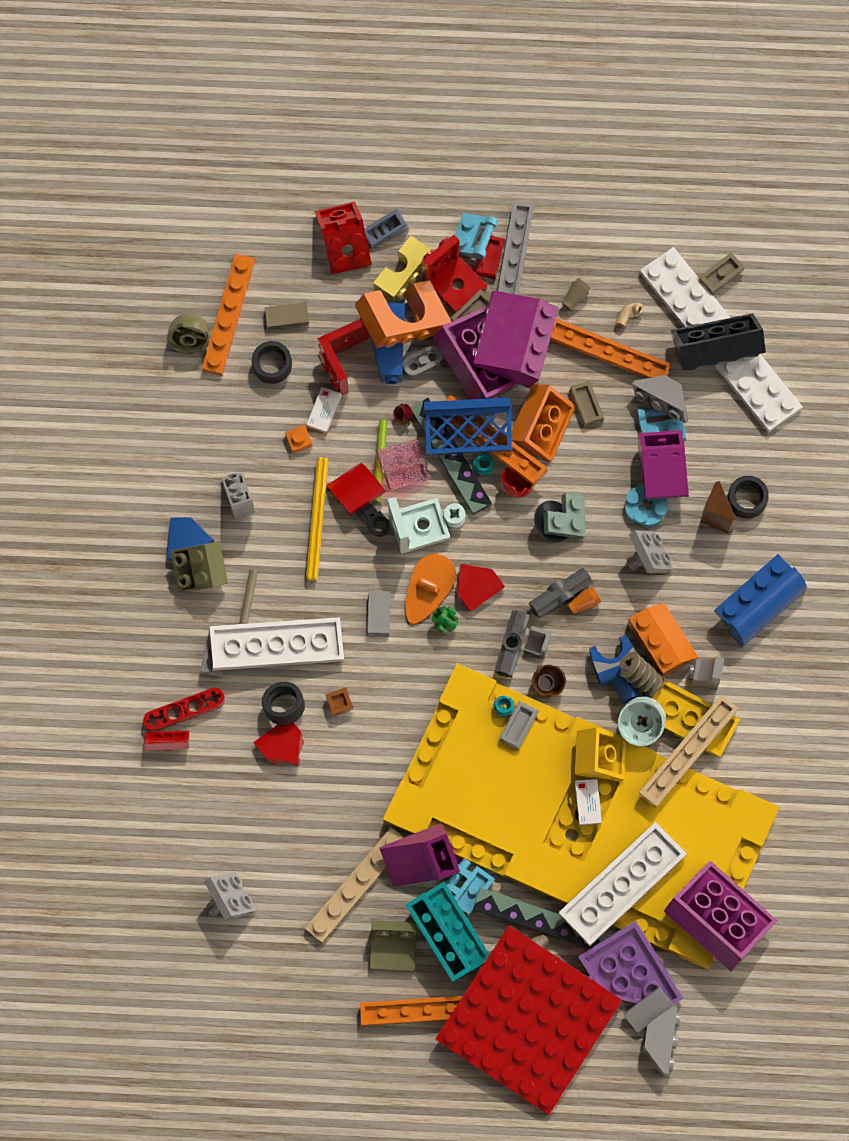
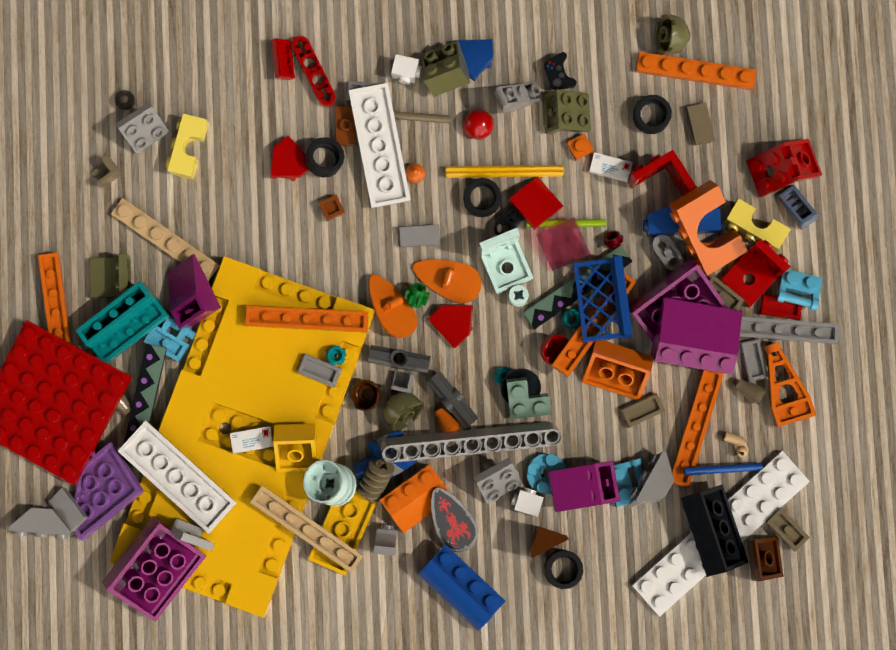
camera: 80 degrees right, 10 degrees up
(194, 610) = (406, 69): none -> white brick
(196, 924) = (127, 105): none -> clear smoke plate
(216, 454) = (556, 74): none -> black piece
(248, 680) = (345, 126): none -> dark orange plate
(259, 449) = (566, 111): none -> olive bracket
(263, 541) = (478, 124): none -> red hair
(271, 860) = (189, 129): none -> light yellow arch
(273, 944) = (106, 172): none -> dark tan panel
(309, 610) = (415, 173): none -> orange plate
(346, 559) = (486, 183): none -> black tyre
(455, 647) = (391, 308): none -> orange shield
(461, 733) = (306, 319): none -> orange plate
(535, 543) = (499, 372): none -> teal plate
(544, 288) = (753, 360): none -> light grey tile
(566, 645) = (400, 409): none -> olive cylinder
(599, 254) = (786, 412): none -> orange plate
(608, 606) = (462, 437): none -> light grey beam
(654, 311) = (722, 469): none -> blue bar
(675, 525) = (527, 502): none -> white brick
(685, 872) = (191, 534): none -> light grey slope
(689, 603) = (452, 521): none -> shield
(749, 299) = (764, 558): none -> reddish brown slope

